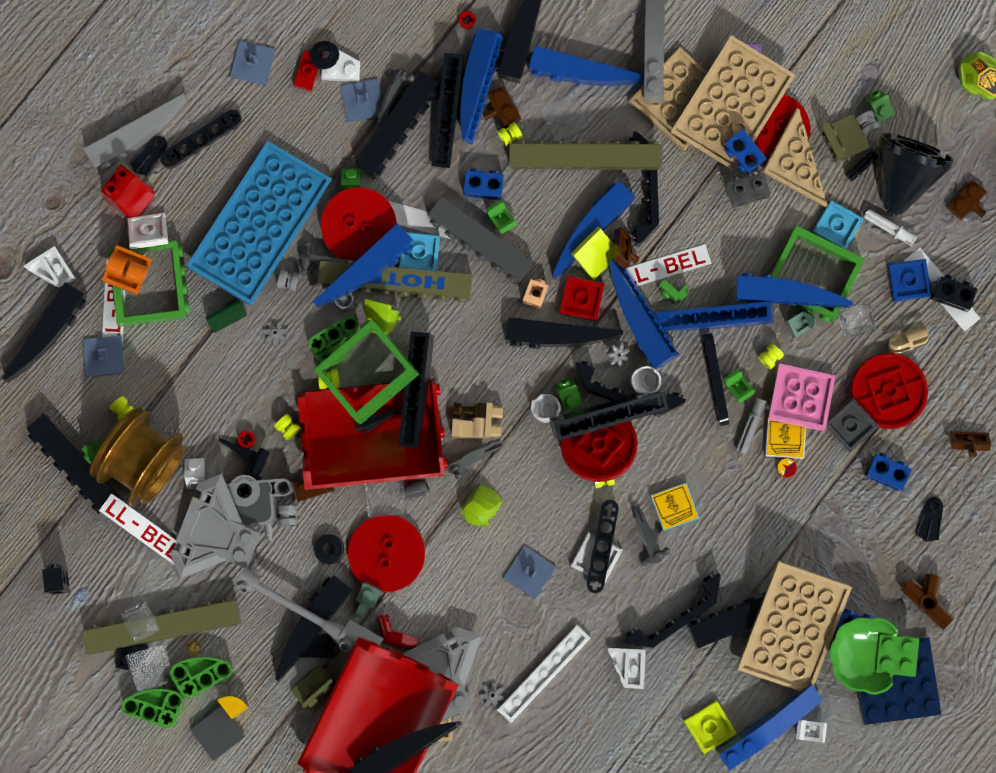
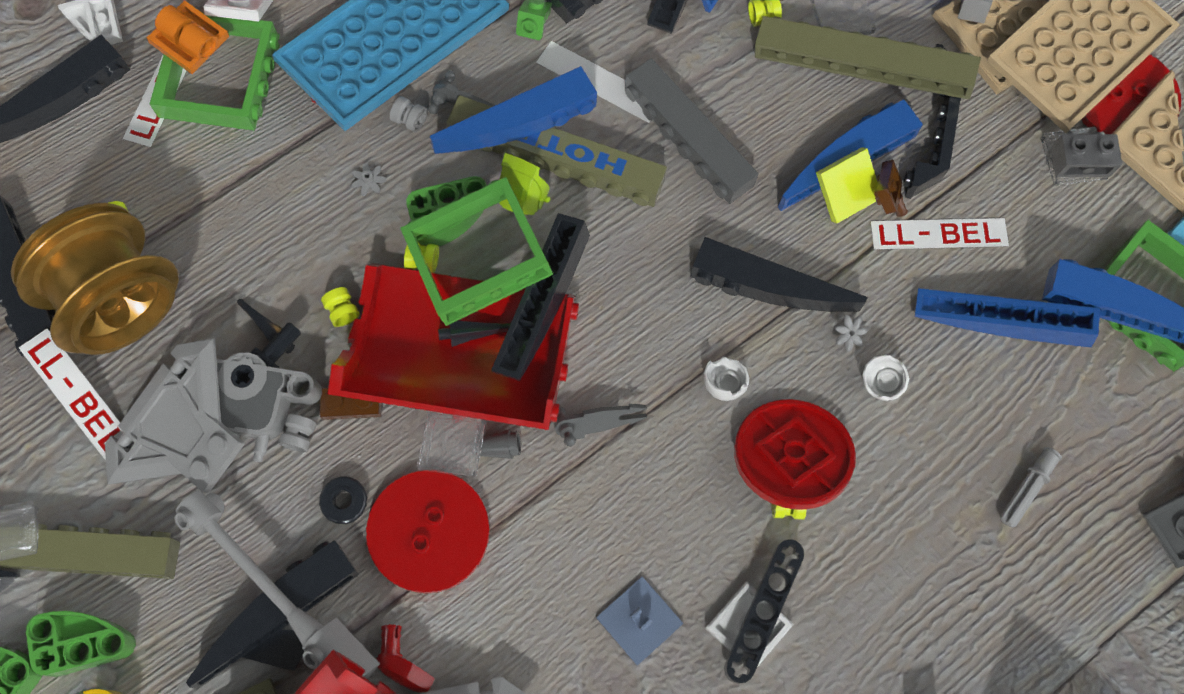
camera: 10 degrees right, 10 degrees down
(103, 356) = (121, 148): sand blue piece -> none
(194, 472) = (183, 330): white bracket -> none
(194, 648) = (87, 597): clear yellow rock -> none
(226, 316) = (306, 137): dark green slope -> none
(242, 435) = (276, 301): red bush -> none
(341, 302) = (471, 158): light grey wheel -> none
(356, 222) = (522, 55): red plate -> none
(367, 596) = (377, 591): sand green plate -> none
(424, 252) = (604, 124): medium azure tile -> none
(481, 423) = (624, 378): tan hips -> none
(481, 506) = (592, 497): lime helmet -> none
(483, 190) = (711, 68): blue brick -> none
(501, 217) = (725, 107): bright green bracket -> none
(535, 285) = (742, 225): light nougat brick -> none
(568, 394) = (764, 369): bright green bracket -> none
(582, 298) = (814, 243): red plate -> none
(586, 372) = (916, 421): black slope -> none
(607, 415) = (820, 409): black slope -> none
(641, 319) = (897, 295): blue slope -> none
(655, 554) = (844, 646): dark grey piece -> none
(669, 291) = (946, 267): bright green bracket -> none
(674, 507) = (888, 579): yellow tile -> none
(715, 379) = (989, 406): black beam -> none
(738, 386) = (1021, 423): bright green bracket -> none
(749, 149) = (1100, 99): blue brick -> none
(770, 356) = (1080, 390): neon yellow wheel -> none
(785, 440) = (1079, 520): yellow tile -> none
(786, 468) = (1074, 565): tile -> none
(800, 323) = (1131, 357): sand green plate -> none
(801, 397) = (1117, 465): bright pink plate -> none

